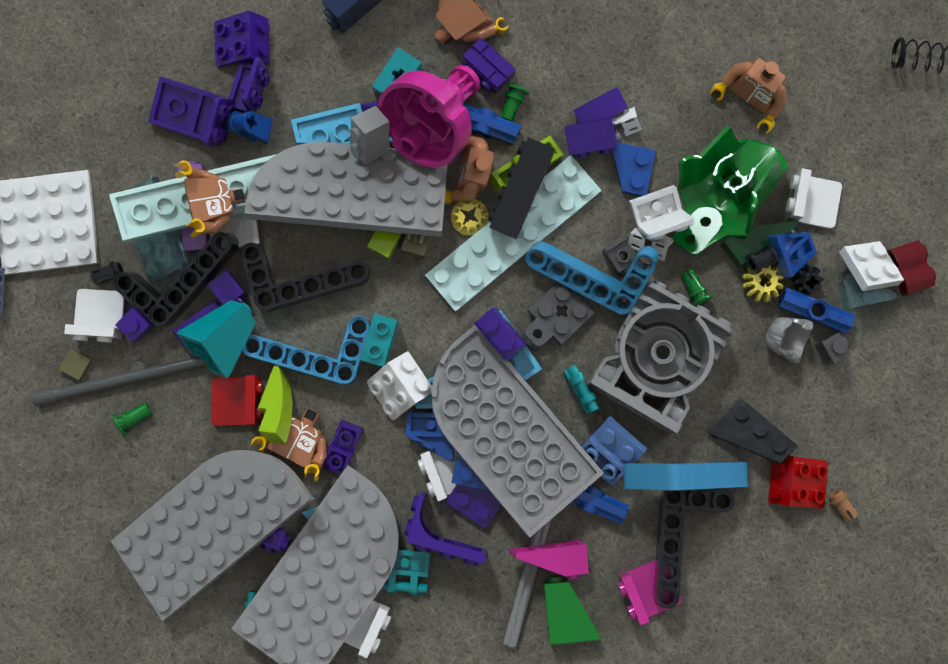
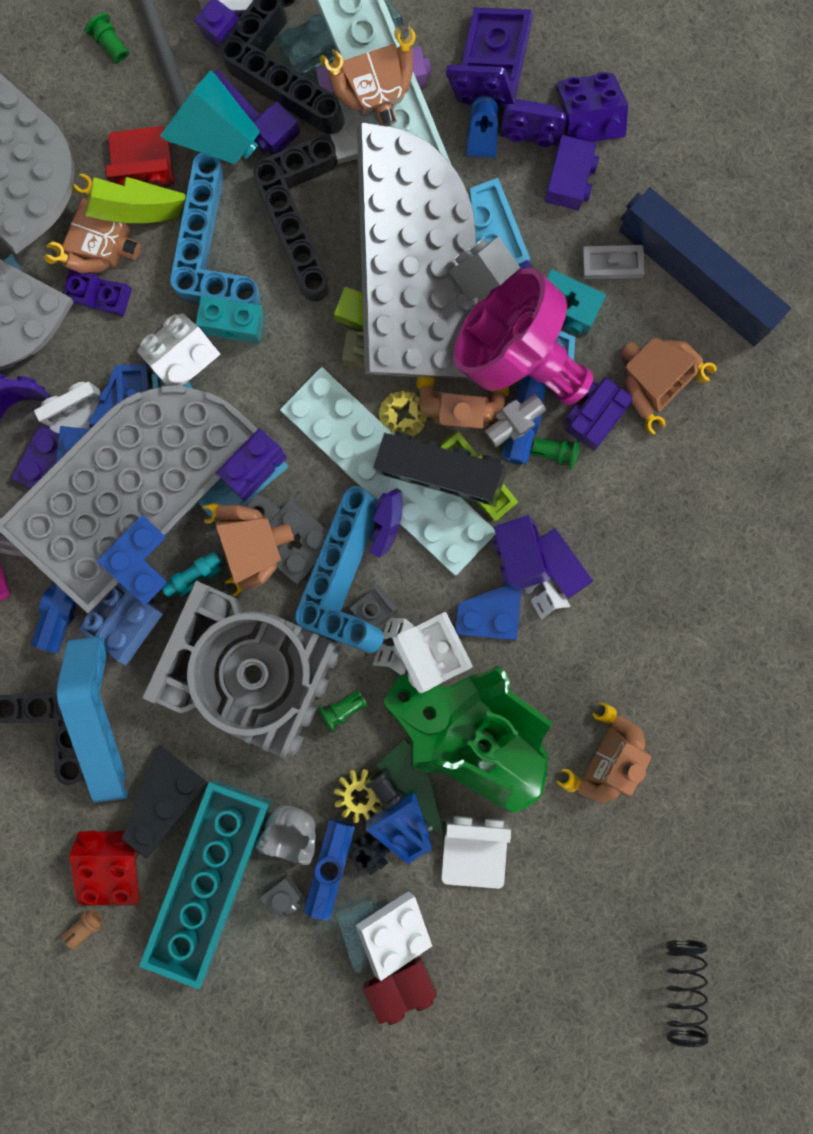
camera: 75 degrees right, 0 degrees up
(294, 62) = (571, 173): none -> dark purple brick
(369, 40) = (613, 262): none -> light grey plate
(490, 127) = (515, 420): none -> light grey axle
(553, 235) = (389, 517): none -> dark purple slope
(563, 342) = (248, 543): none -> nougat torso
(564, 433) = (127, 560): none -> blue brick
(818, 404) = (205, 883): none -> teal brick

